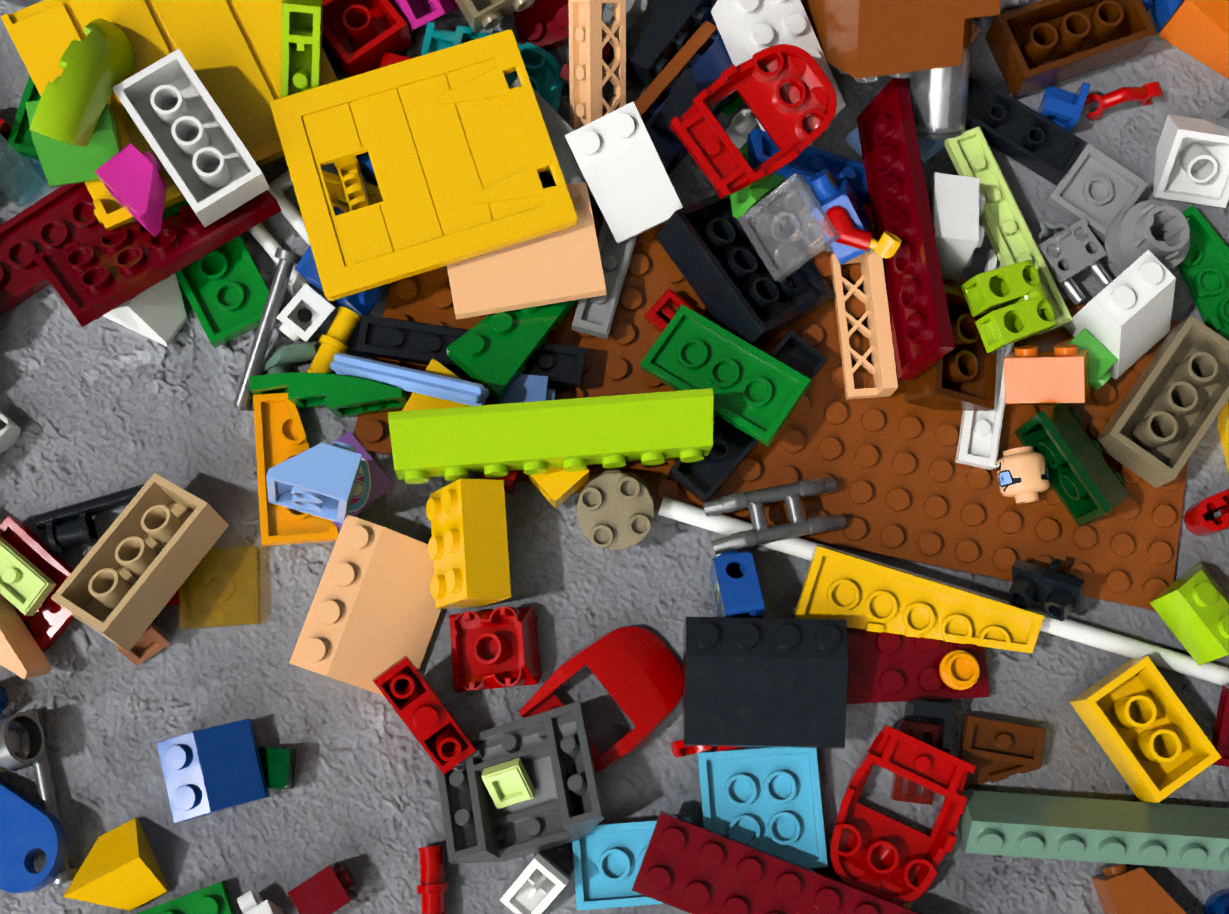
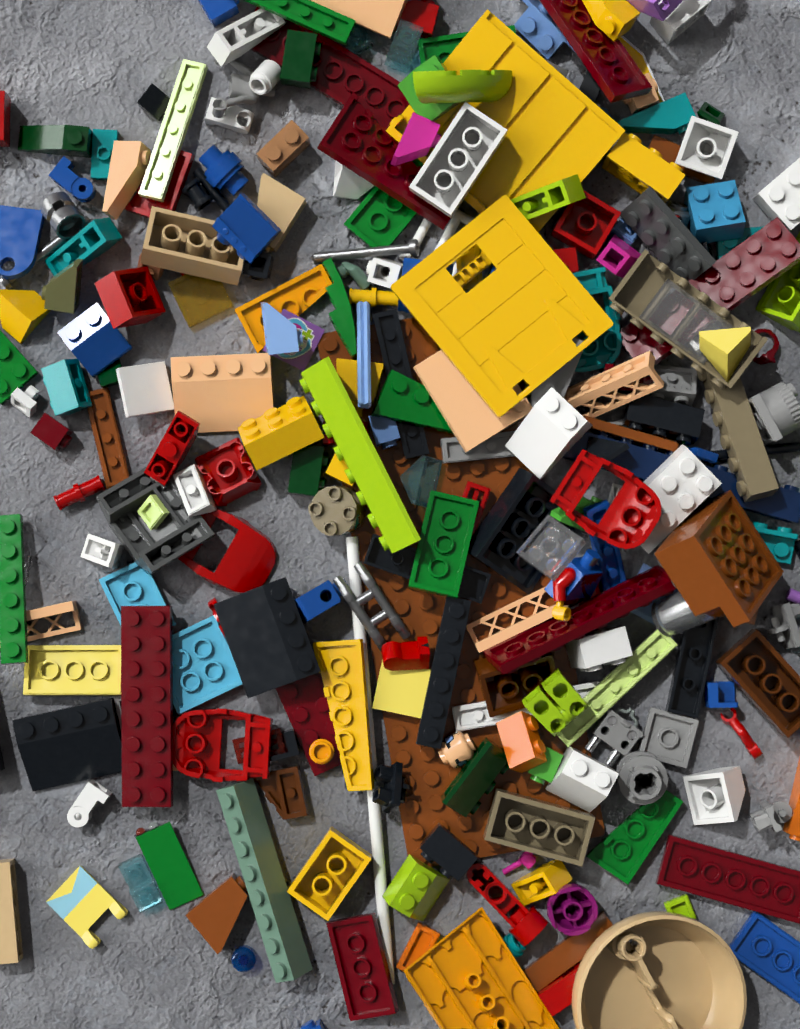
camera: 75 degrees right, 10 degrees up
(53, 480) = (223, 170): none -> blue piece
(64, 385) = (283, 148): none -> medium nougat brick
(68, 733) = (85, 245): none -> teal slope
(115, 787) = (64, 289): none -> olive slope
(148, 475) = (245, 228): none -> blue slope
(151, 431) = (281, 206): none -> tan slope
(171, 689) = (130, 297): none -> red brick
(215, 487) = (260, 268): none -> black brick
(264, 843) = (66, 387): none -> brick
(320, 723) = (145, 389): none -> white tile
(366, 811) = (107, 437): none -> dark orange tile
(503, 709) = (194, 491): none -> white slope
(540, 532) = (307, 471): none -> dark green brick
(617, 373) = (421, 479): none -> clear light blue slope
(863, 489) = (406, 655): none -> red leg
(906, 520) = (401, 691): none -> light yellow tile
(907, 450) = (443, 672): none -> black brick
(1170, 542) = (448, 852): none -> black brick
(1209, 443) = (526, 859): none -> dark pink hand

